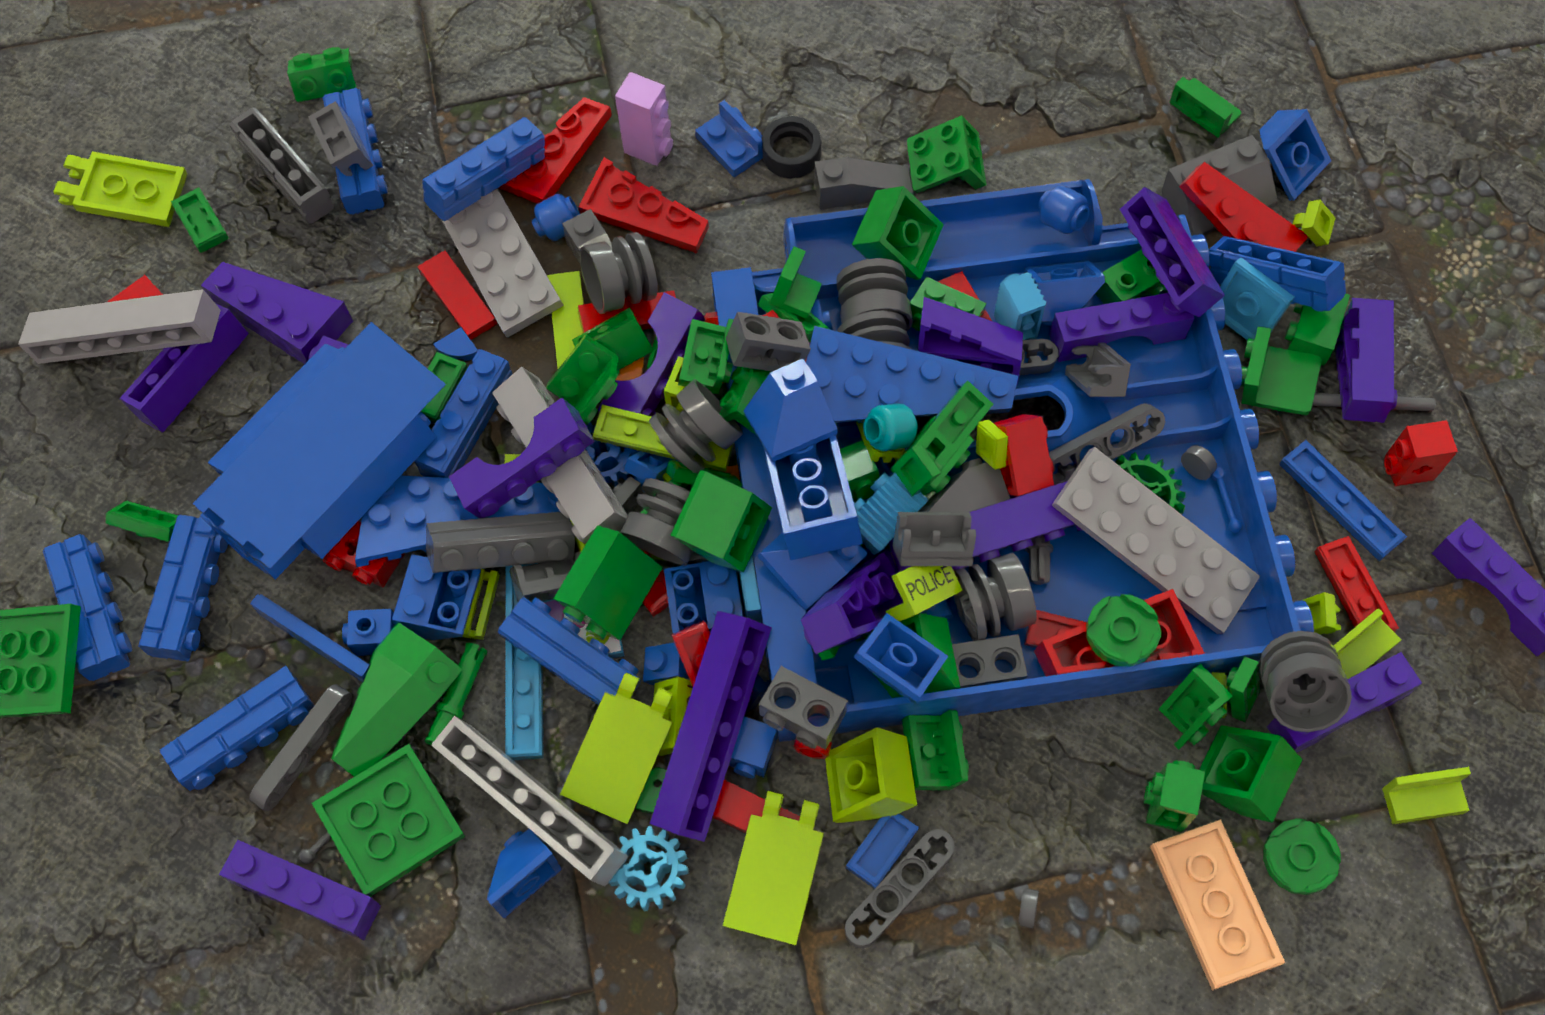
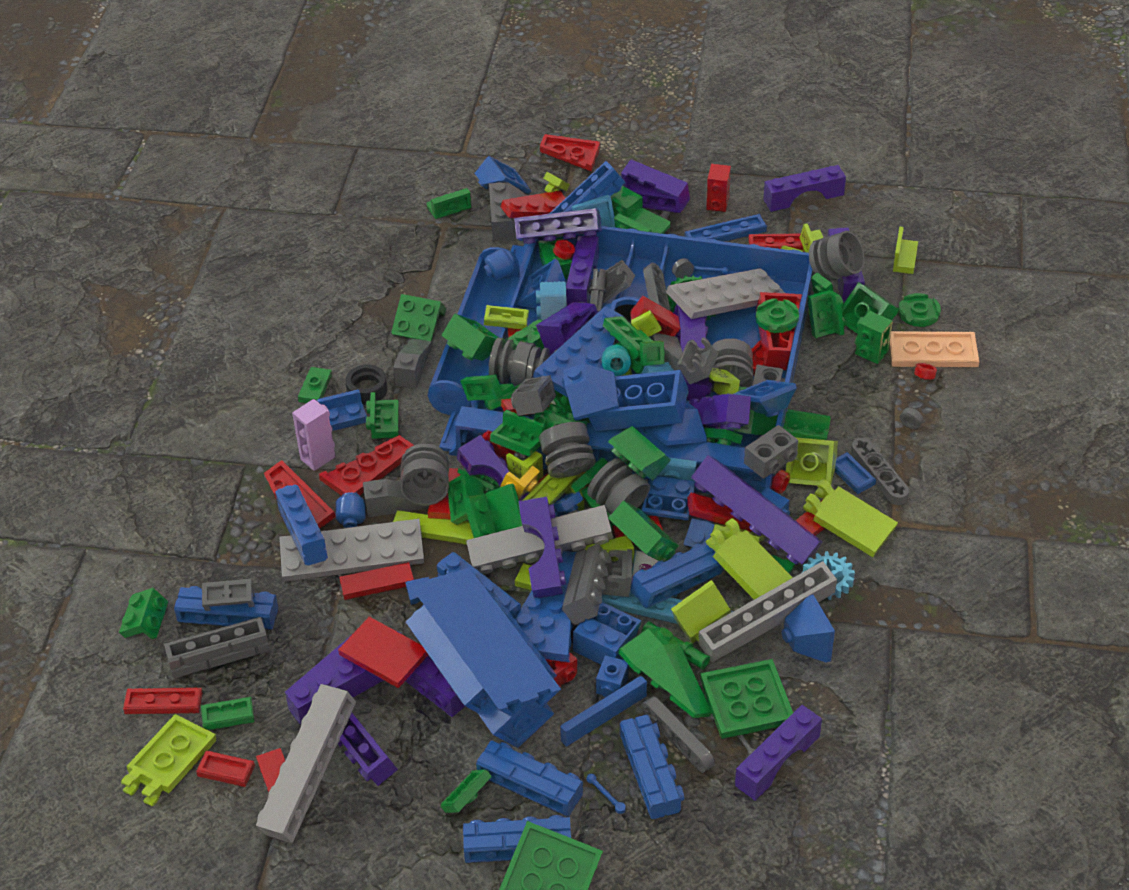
camera: 70 degrees left, 20 degrees down
(126, 252) = (225, 768): none -> red tile
(177, 713) = (619, 806): none -> blue hinge
(206, 148) = (162, 700): none -> red tile
(295, 334) = (383, 652): none -> red tile
(497, 710) = (700, 610): none -> lime slope
(643, 401) = (526, 483): none -> yellow bracket
(735, 188) = (383, 417): none -> green bracket
(769, 91) = (315, 384): none -> green plate
(976, 283) = (506, 317): none -> lime tile
(1074, 357) = (597, 289): none -> dark grey axle
(1139, 281) = (564, 249): none -> red tile
(1152, 903) = (925, 371): none -> red tile
(1411, 220) = (571, 150): none -> red wing

